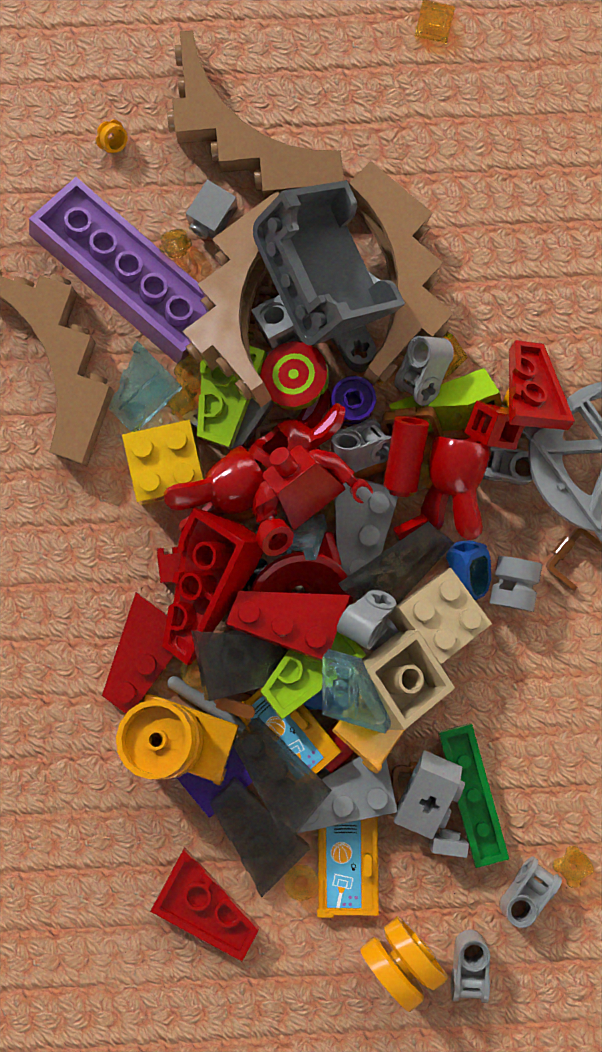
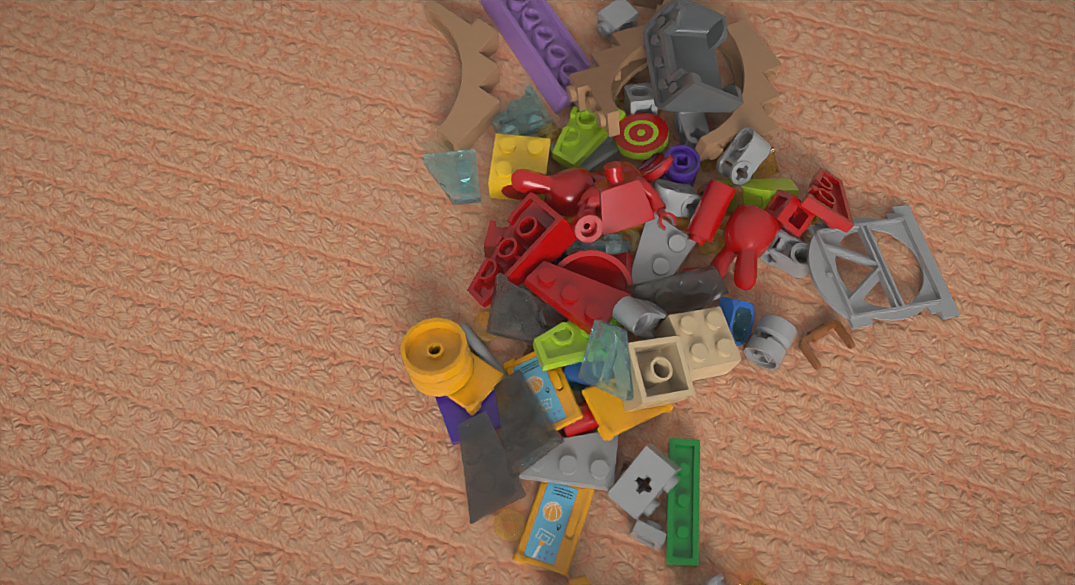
camera: 25 degrees right, 20 degrees down
(93, 494) = (456, 175): none -> clear light blue wing
(138, 655) = (447, 295): red wing -> none
(175, 243) = (583, 33): clear yellow plate -> none
(181, 371) = (561, 112): clear yellow plate -> none
(204, 909) = (418, 516): red wing -> none
(234, 705) = (506, 350): dark orange piece -> none

